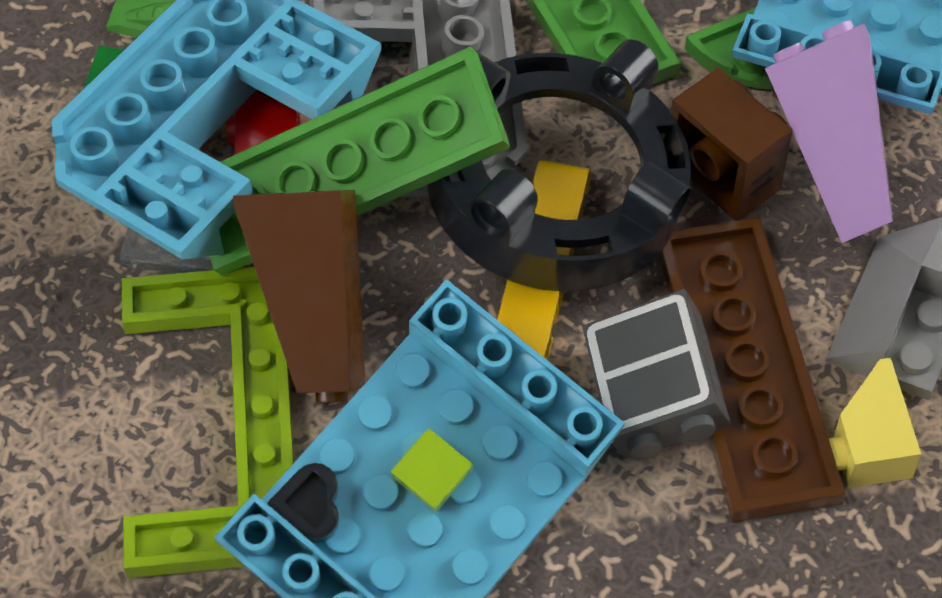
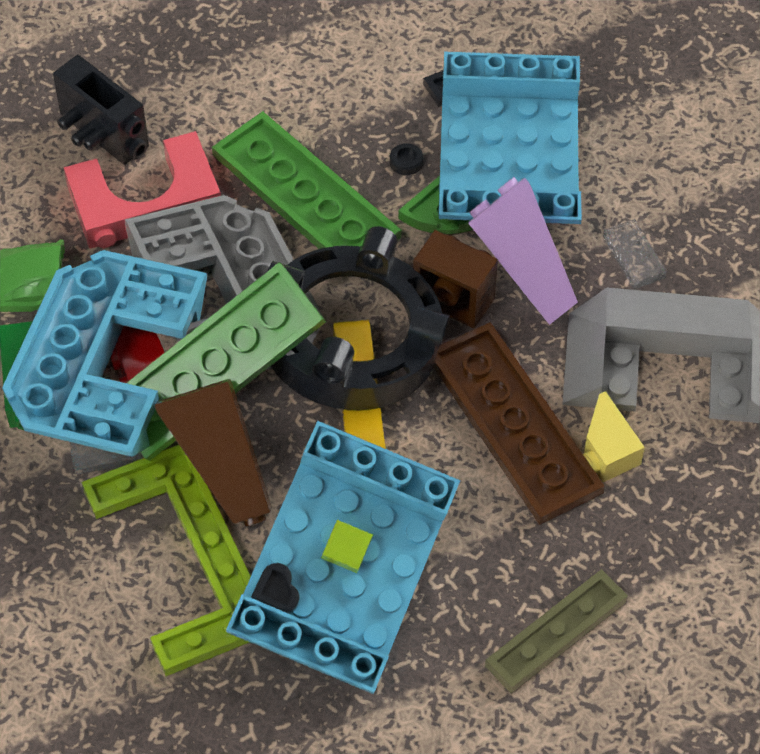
camera: 20 degrees left, 0 degrees up
(656, 375) = (462, 443): dark grey brick -> none

